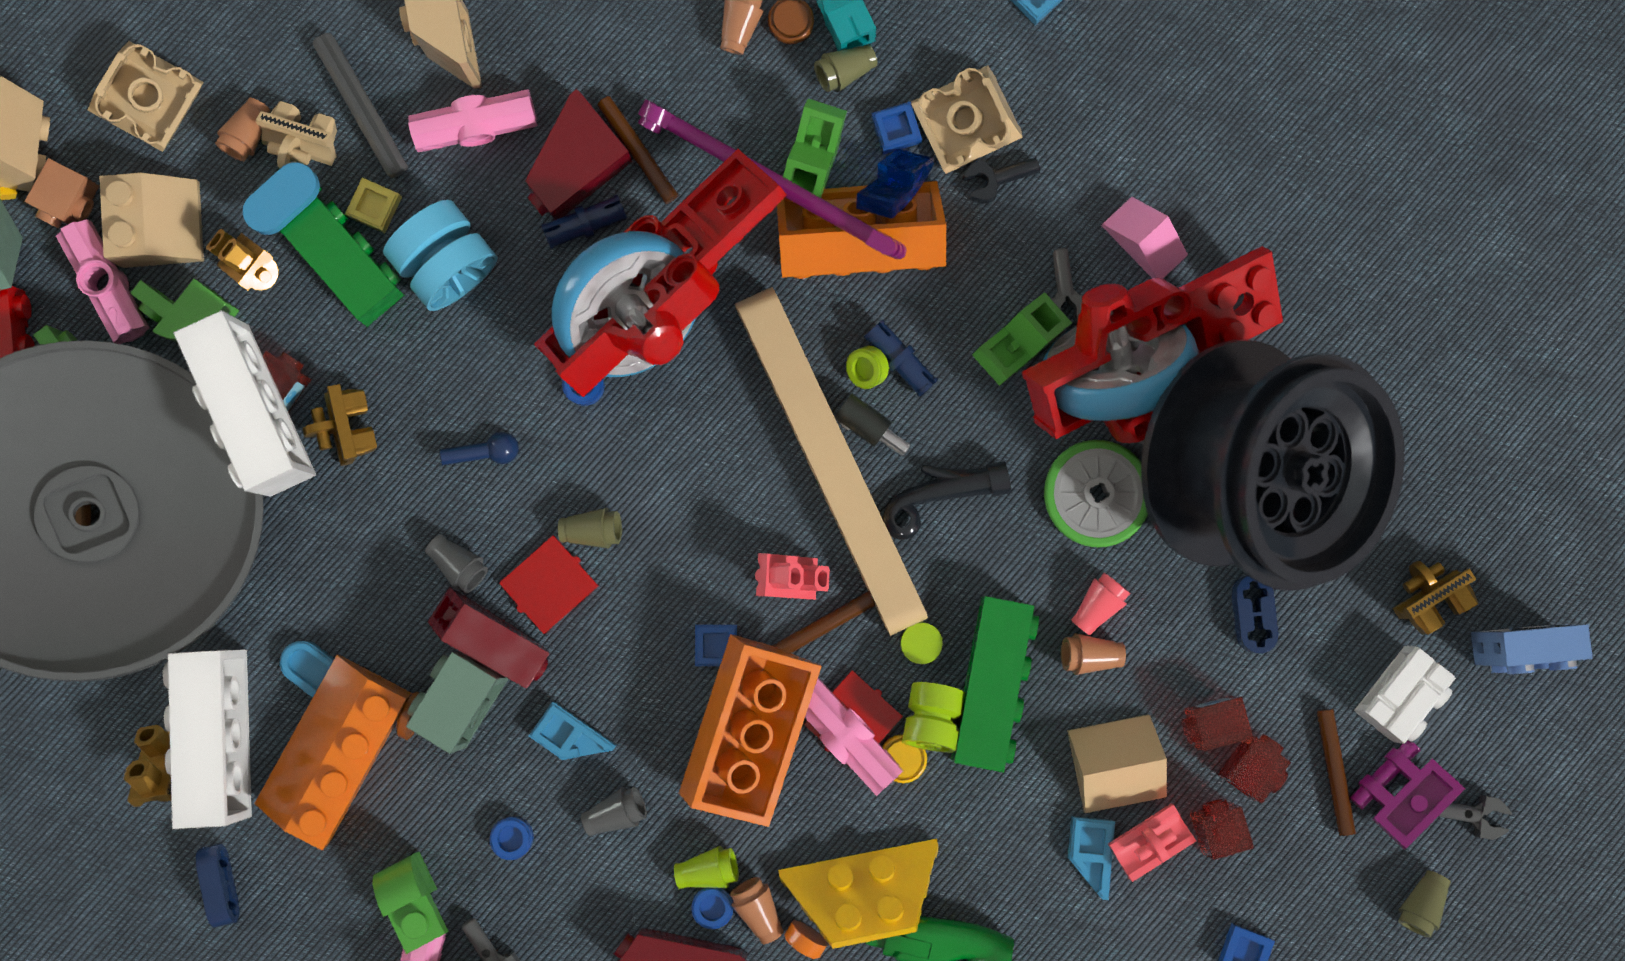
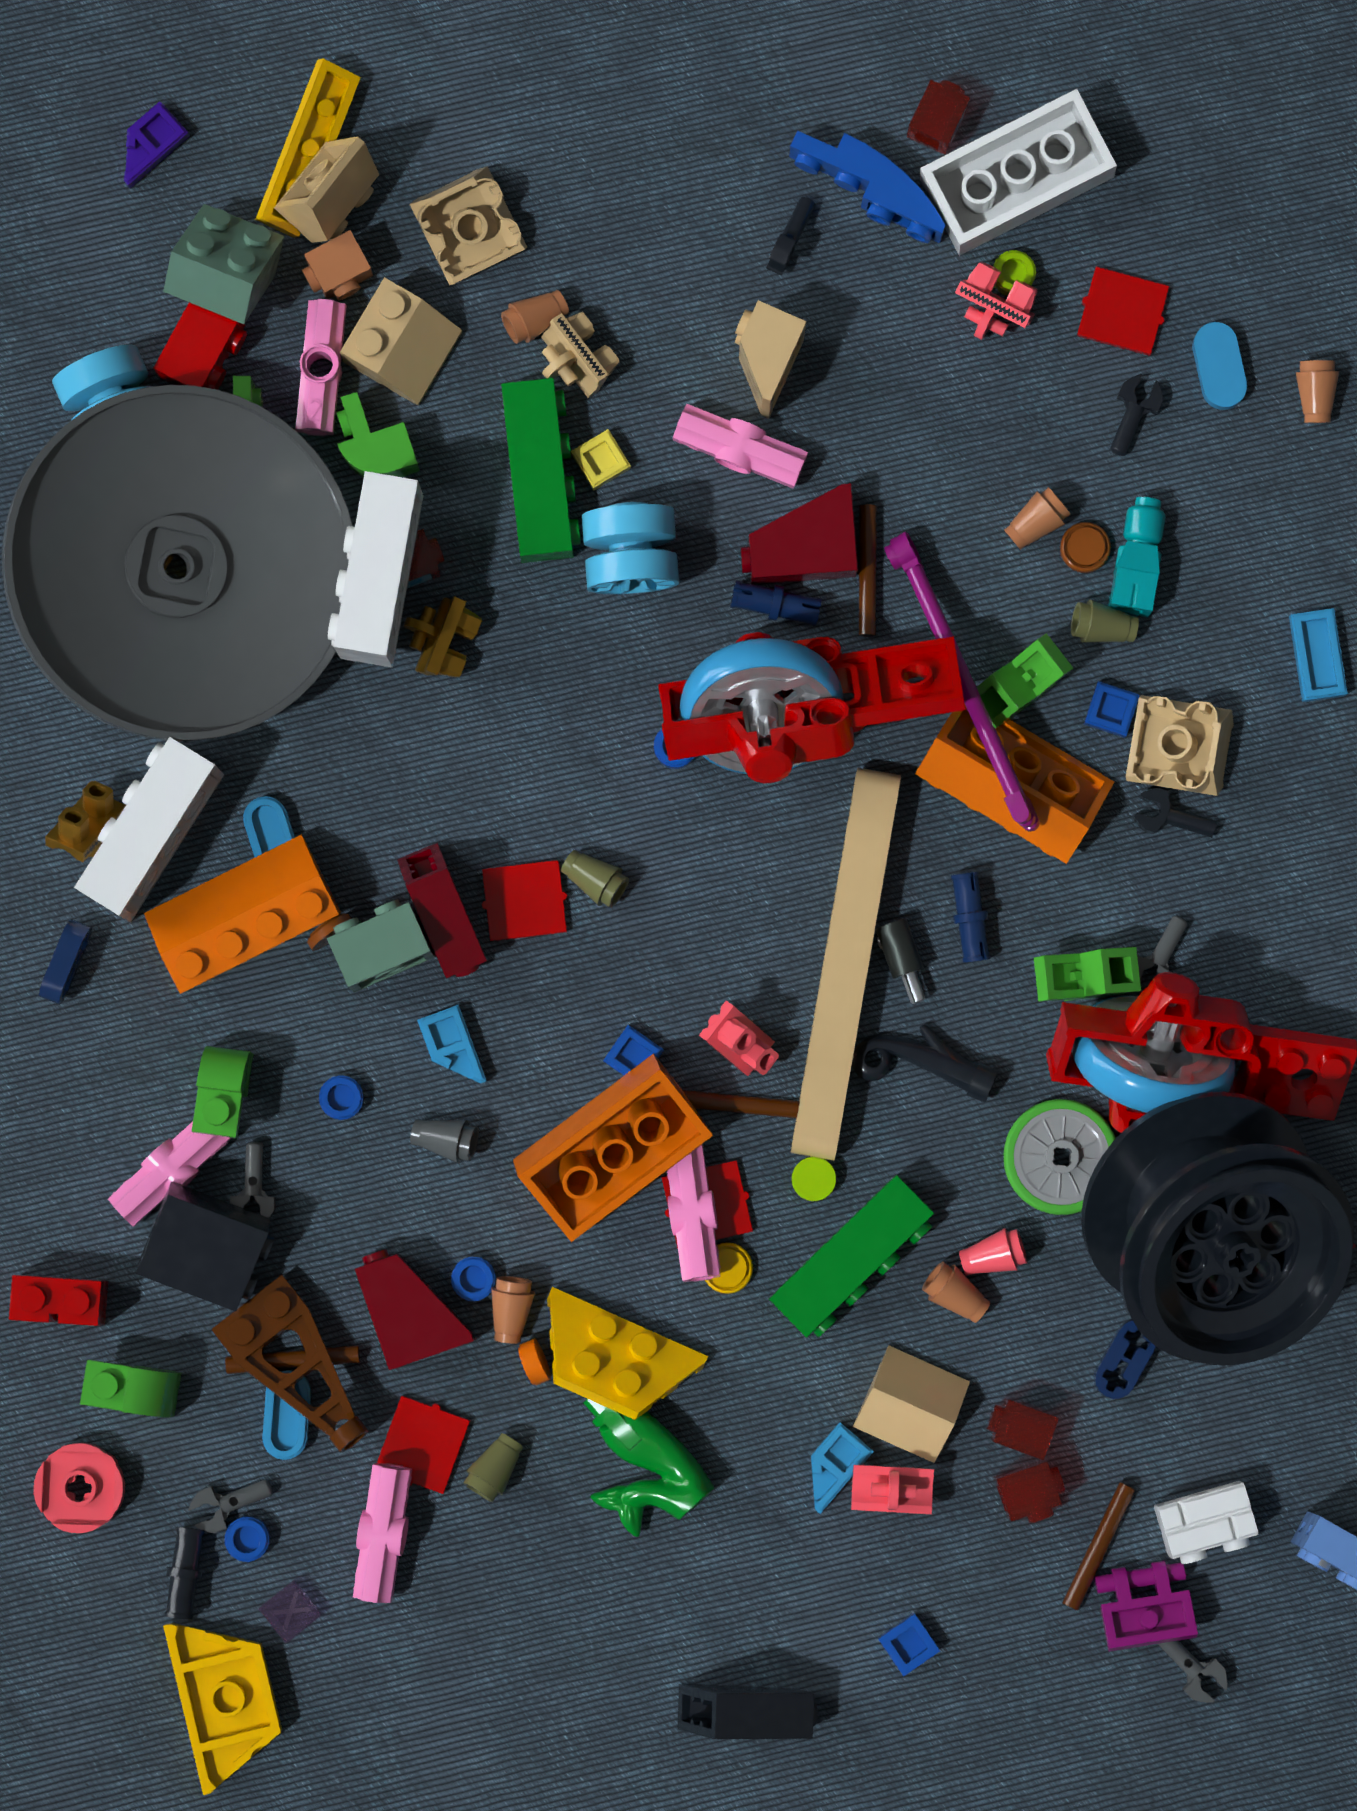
camera: 40 degrees right, 0 degrees up
(244, 260) = (456, 433): pearl gold hips -> none
(281, 198) = (527, 405): dark azure tile -> none
(360, 105) = (650, 362): dark grey axle -> none
(458, 565) = (458, 827): dark grey cone -> none
(500, 448) = (564, 751): dark blue bar -> none
(708, 870) = (494, 1244): lime cone -> none
(867, 367) = (935, 904): lime tile -> none
(897, 183) = (1076, 760): clear blue slope -> none
(933, 717) = (773, 1253): lime wheel -> none
(1146, 237) = (1264, 962): bright pink slope -> none
(1221, 829) = (961, 1520): clear red brick -> none
(1421, 607) = (1274, 1456): pearl gold hips -> none
(1425, 904) = (1093, 1713): olive cone -> none

